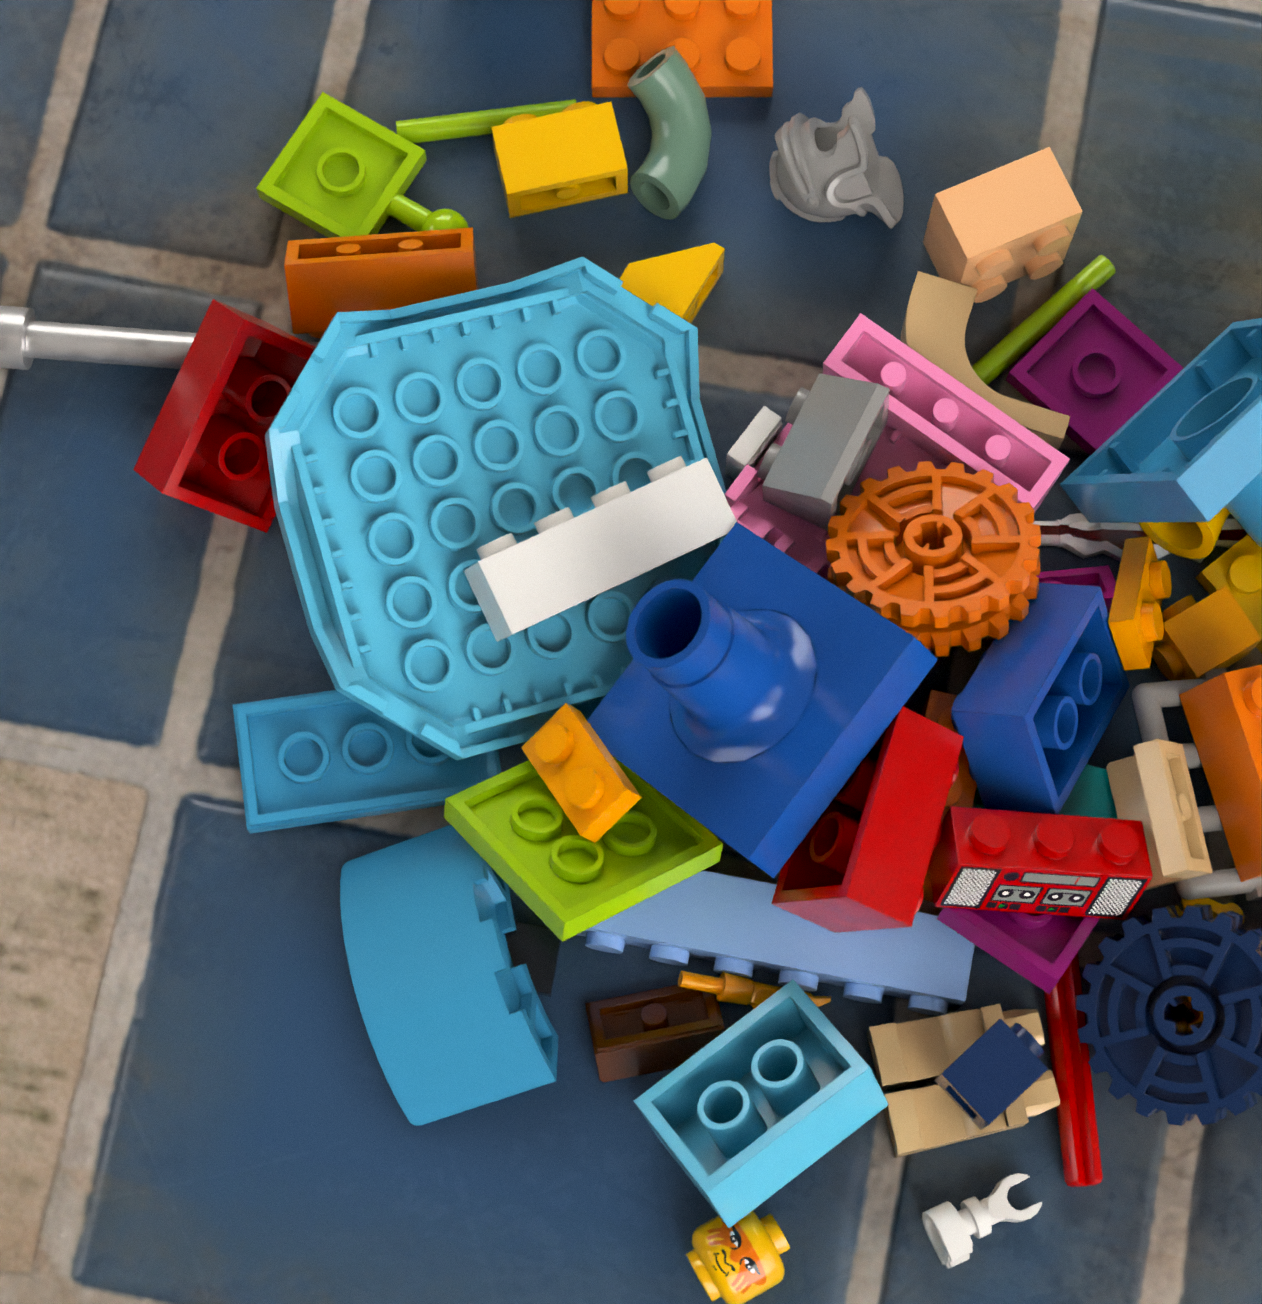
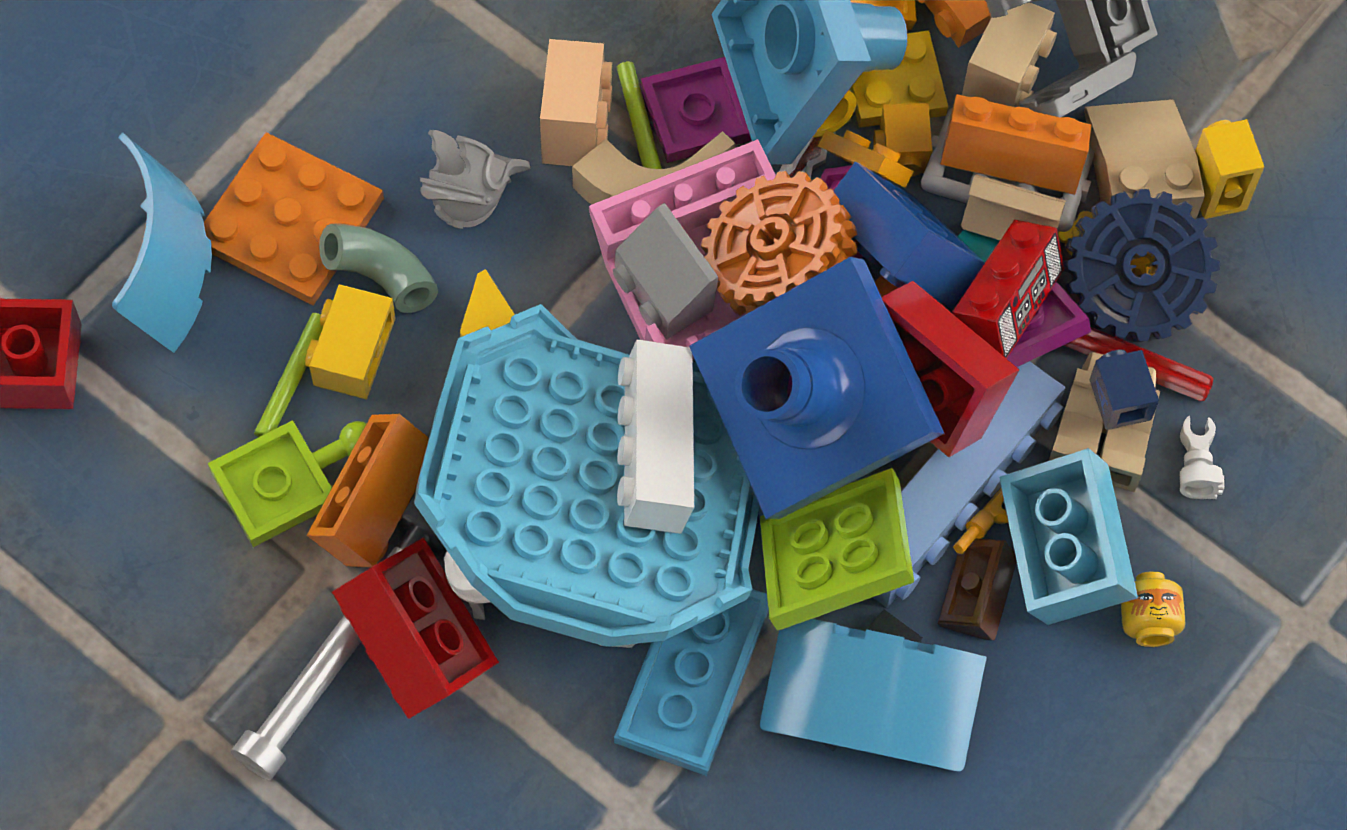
camera: 65 degrees left, 10 degrees down
(580, 773) = (799, 526): light orange plate -> none
(753, 442) = (624, 323): white tile -> none

